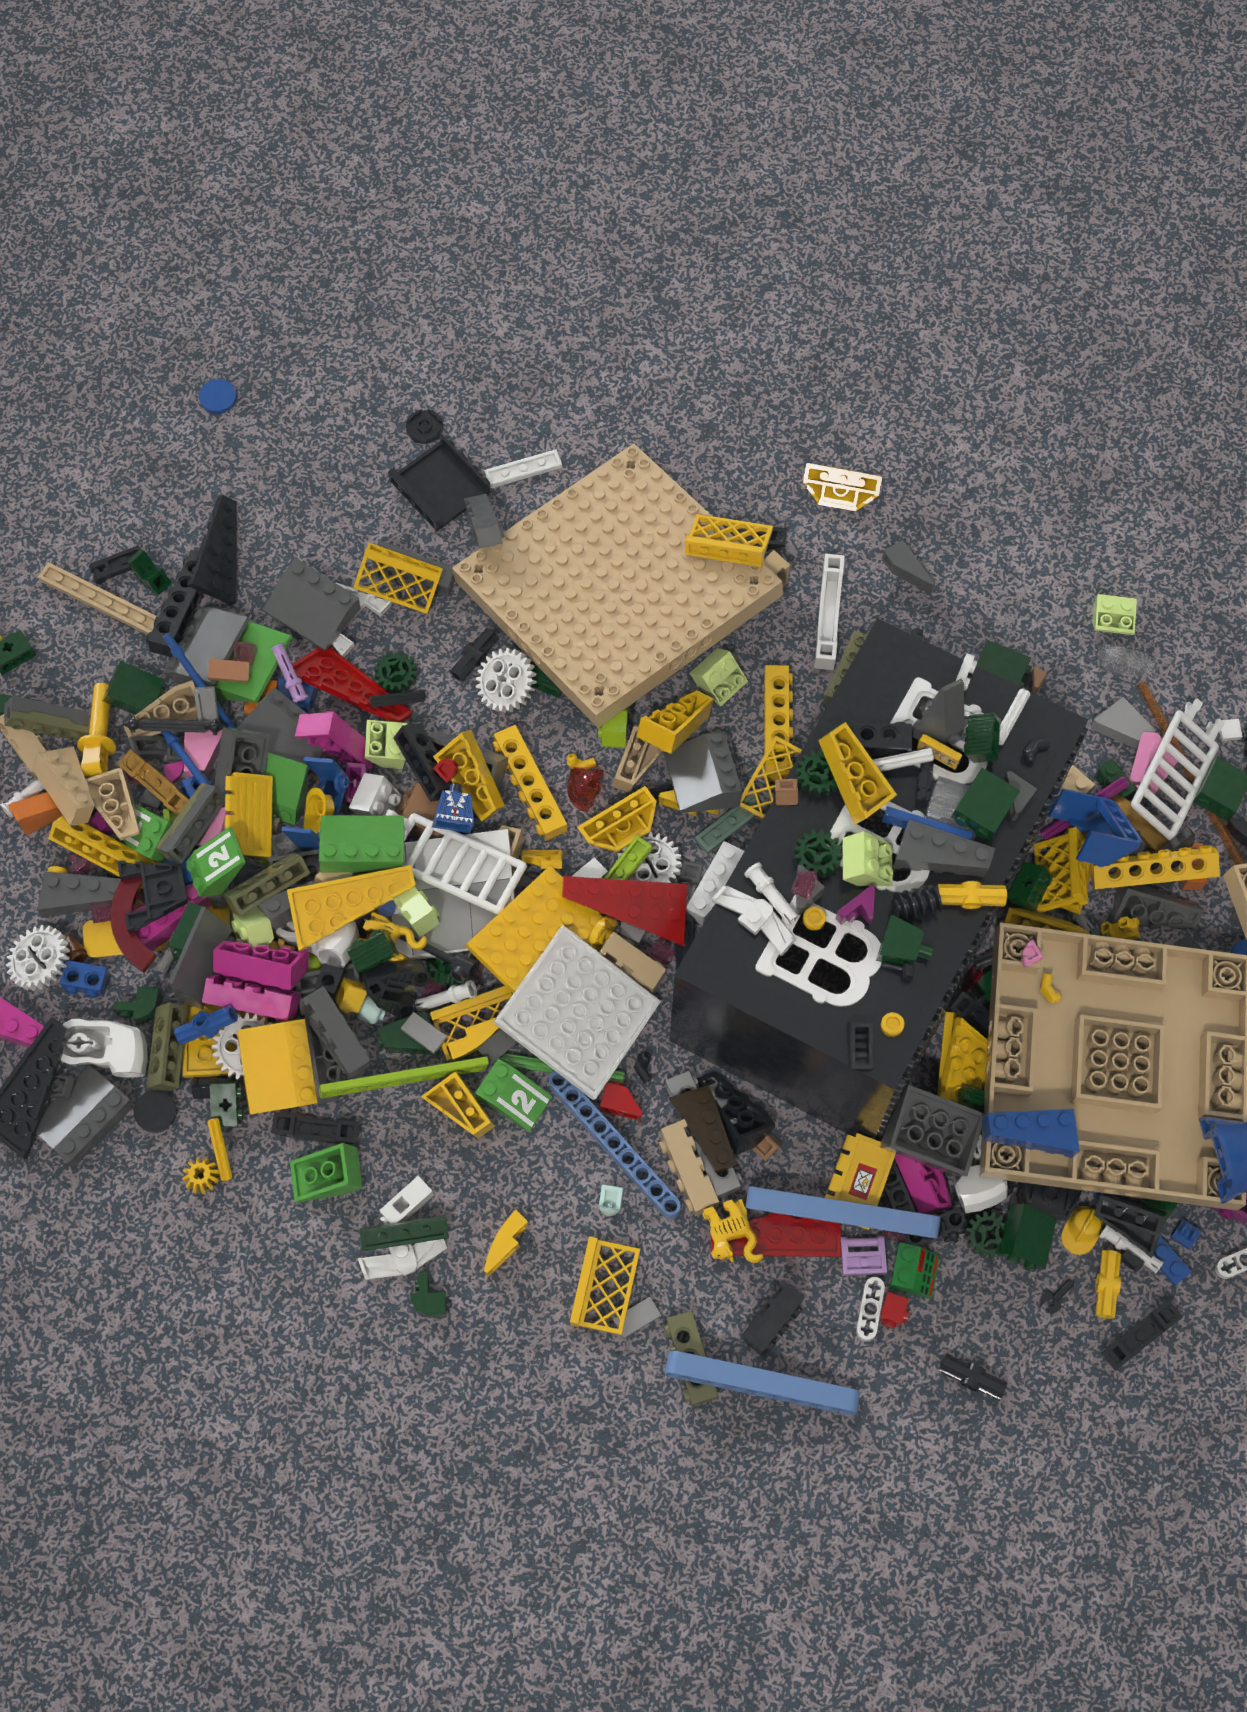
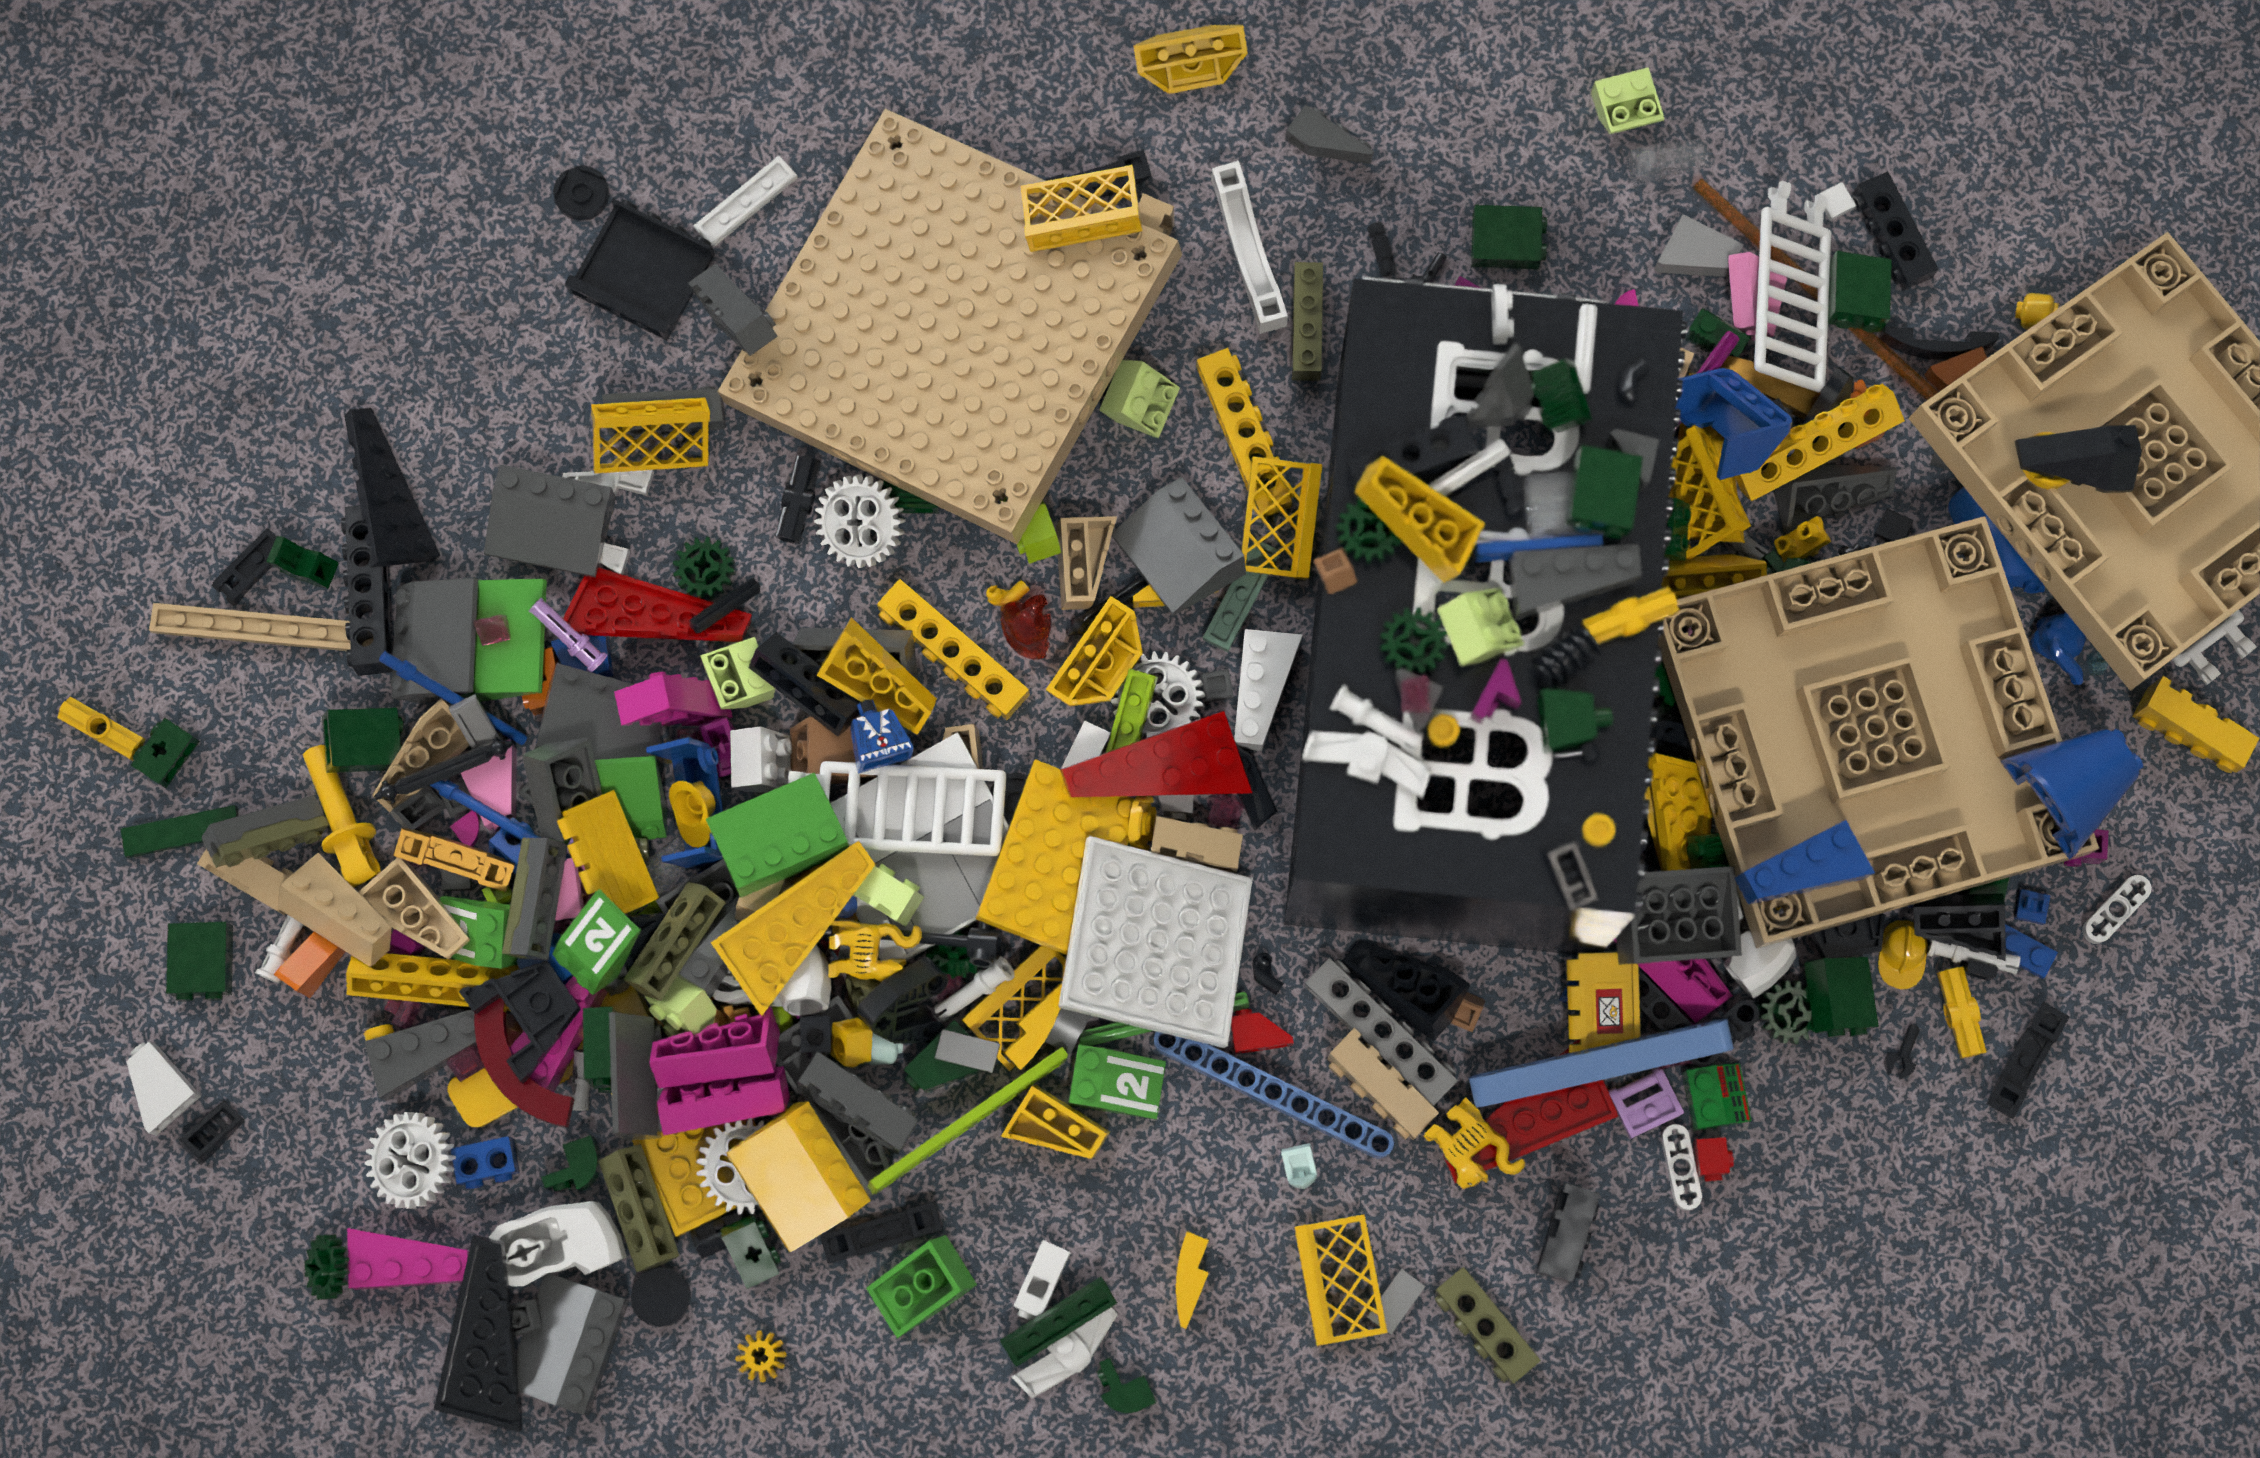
camera: 20 degrees left, 10 degrees up
(77, 951) = (457, 1128): reddish brown cone -> none
(206, 1024) = (681, 1161): blue piece -> none
(217, 396) = (272, 263): blue tile -> none
(219, 1149) = (770, 1313): yellow axle -> none
(228, 670) = (484, 665): nougat tile -> none
(372, 951) = (858, 976): dark green brick -> none
(447, 769) = (843, 685): red tile -> none
(543, 858) = (1018, 748): yellow tile -> none
(676, 722) = (1112, 497): yellow wedge -> none
(705, 1126) = (1379, 1019): dark brown wing -> none
(762, 1383) = (1588, 1320): medium blue beam -> none
(940, 751) = (1513, 437): yellow tile -> none
(973, 1377) = (1842, 1200): black piece -> none
(1031, 954) = (1710, 633): bright pink tile -> none
(1037, 679) = (1560, 233): medium nougat slope -> none
(1047, 990) = (1747, 669): yellow arm -> none

